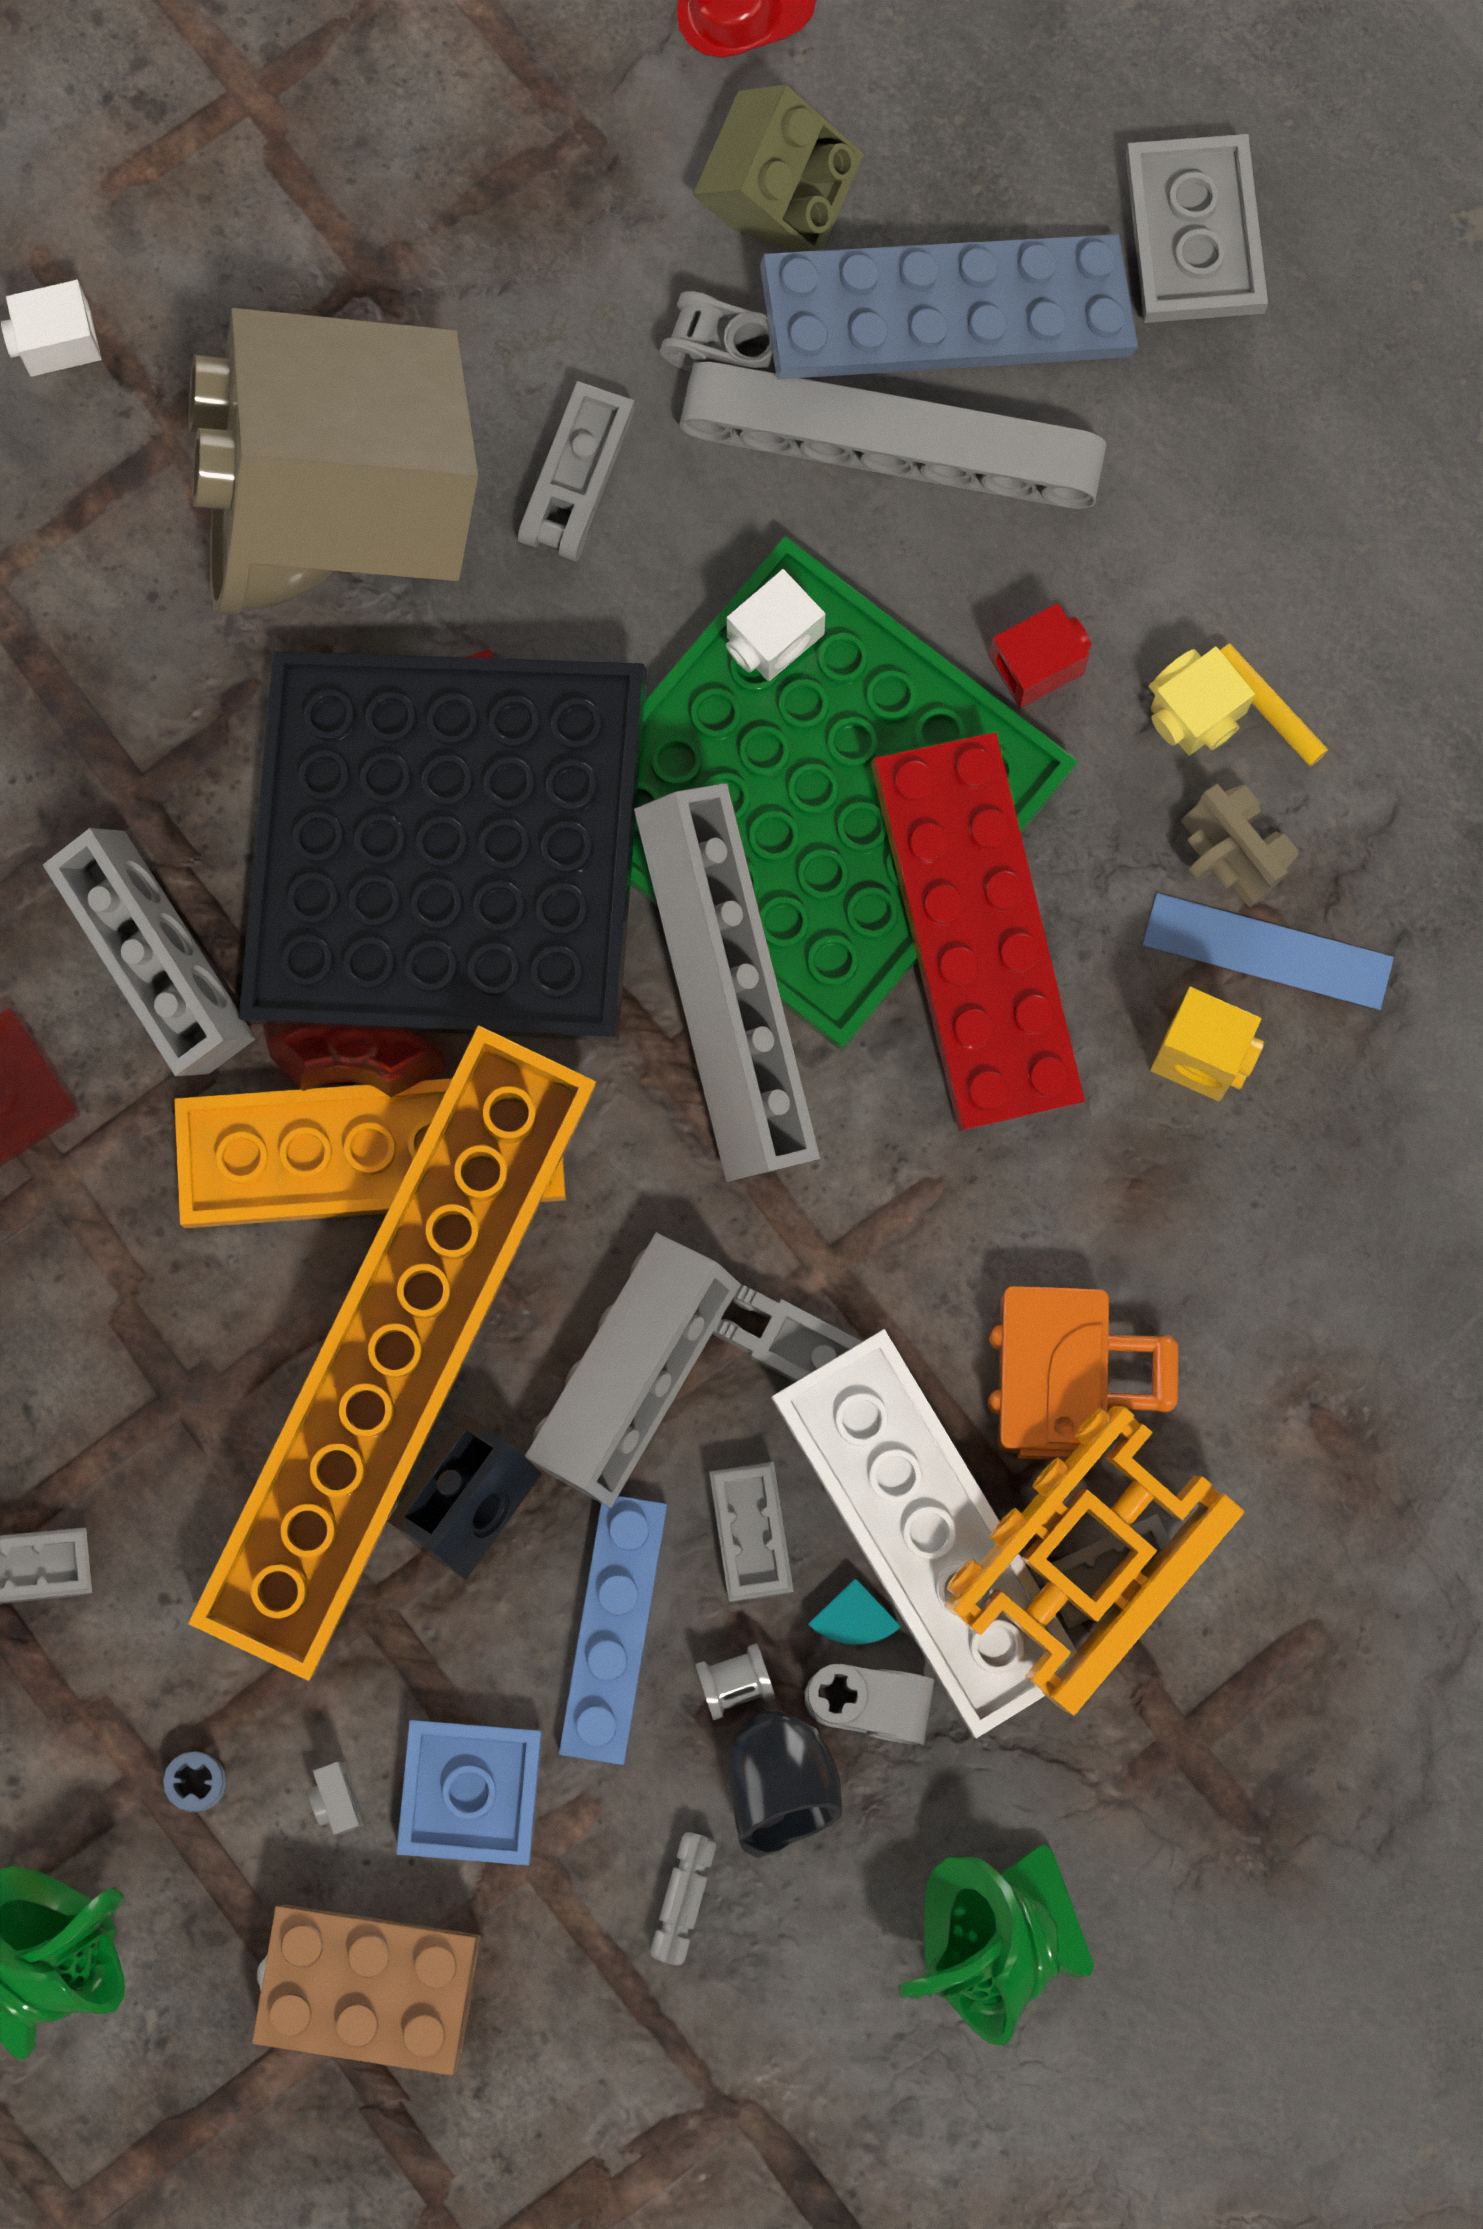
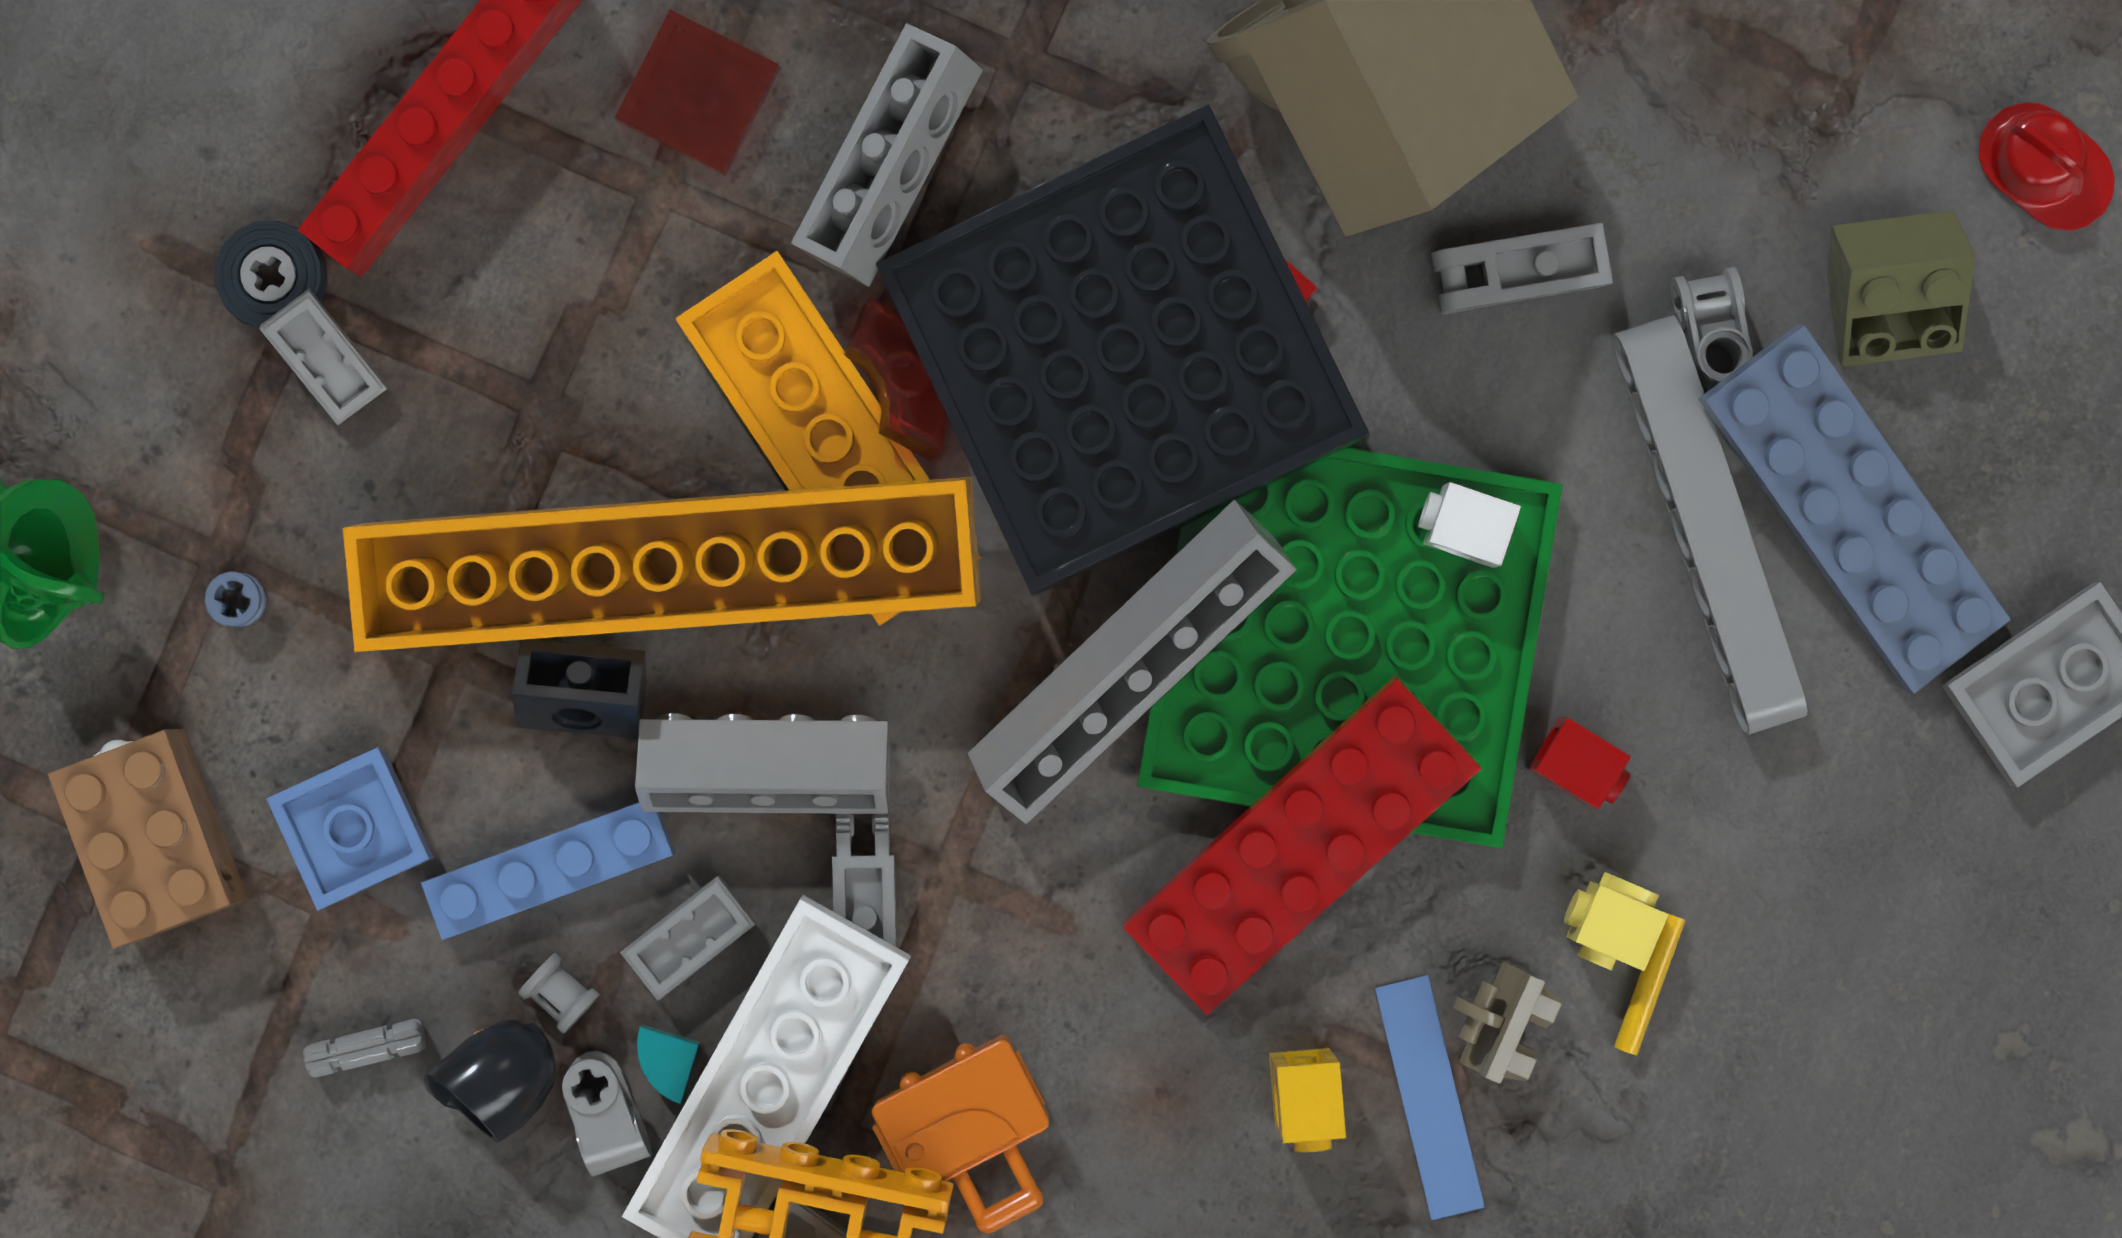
camera: 60 degrees right, 10 degrees up
(335, 1799) = (282, 724): light grey plate -> none

